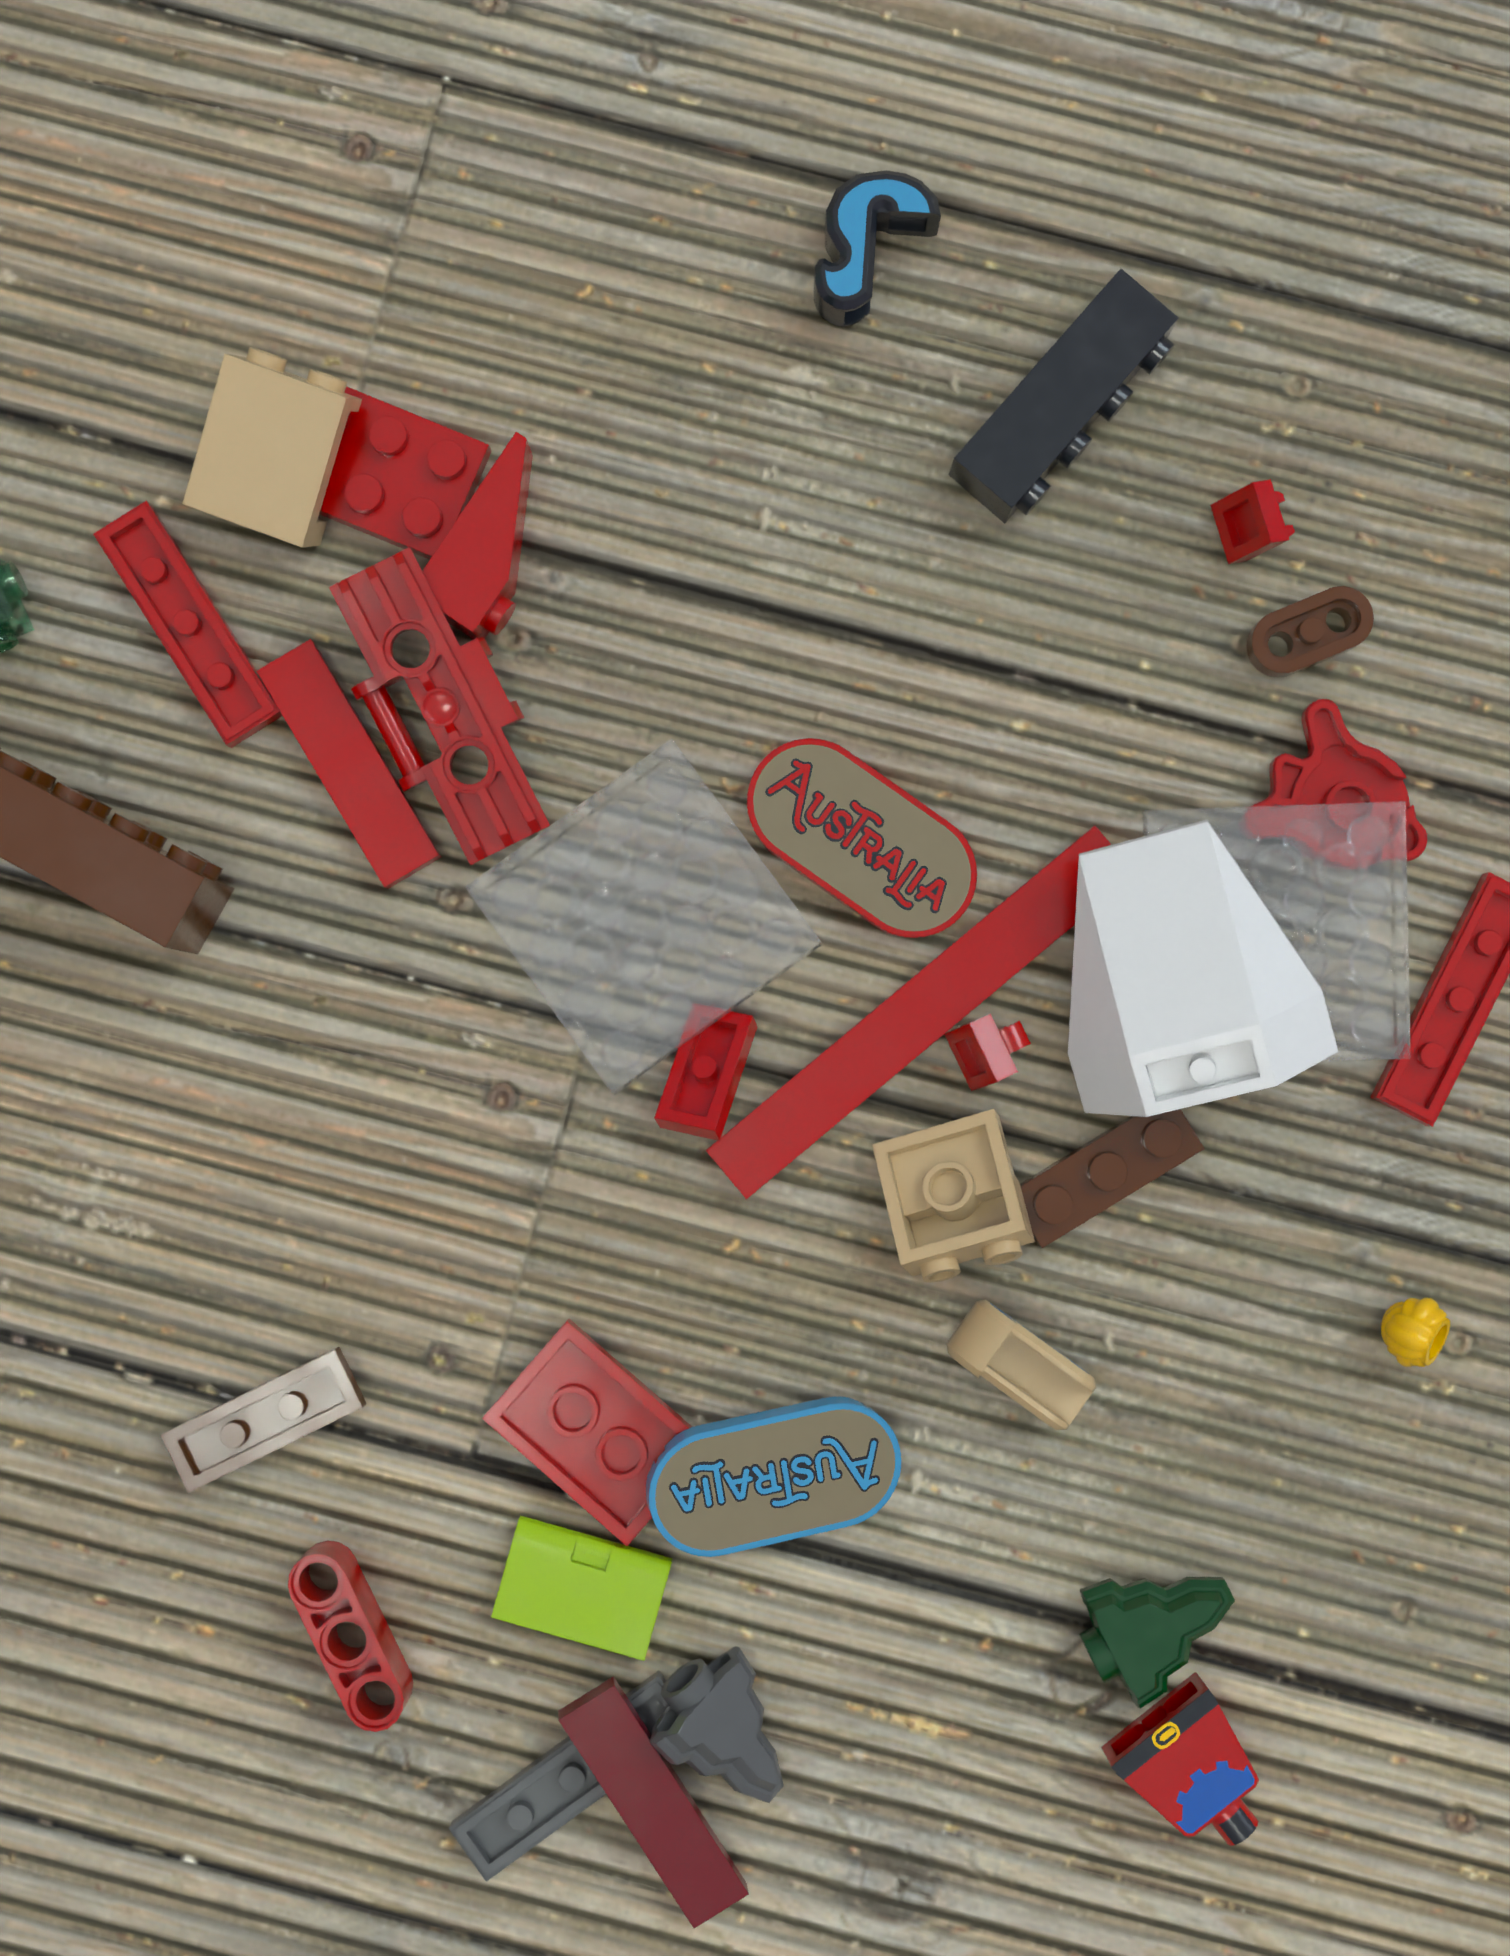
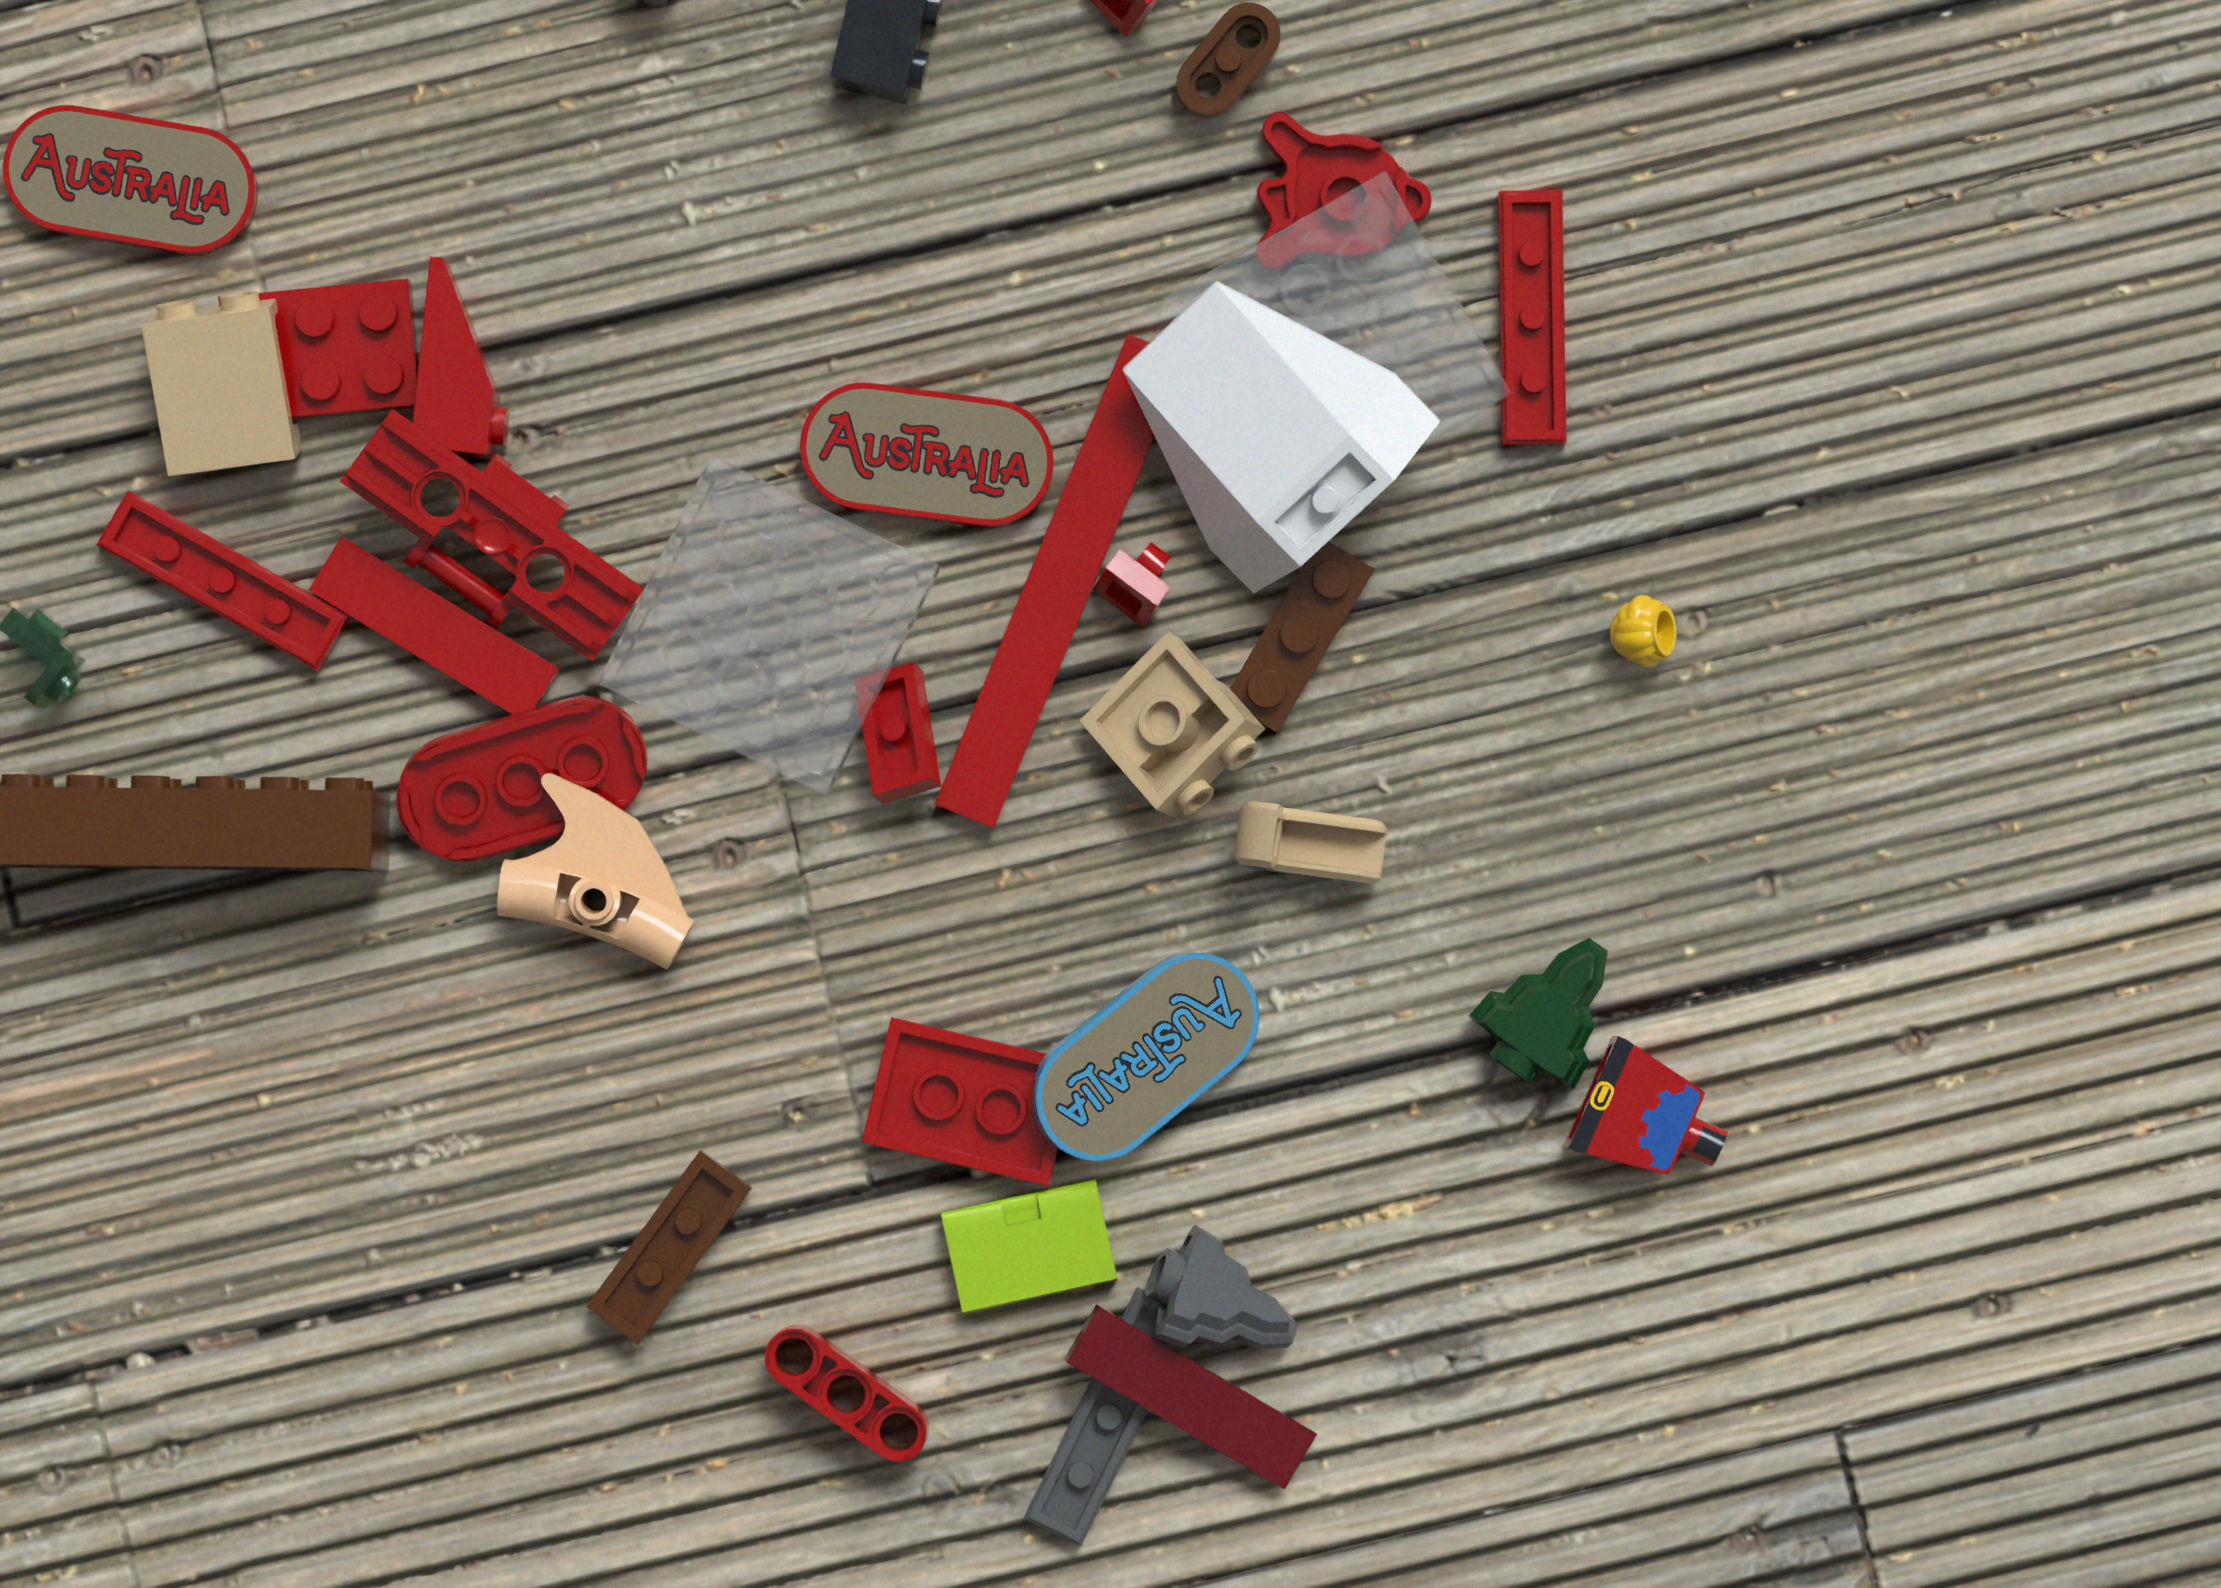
camera: 25 degrees left, 0 degrees up
(293, 233) = (130, 180): none -> dark tan tile
(354, 935) = (483, 785): none -> red tile
(388, 1039) = (602, 852): none -> light nougat pin

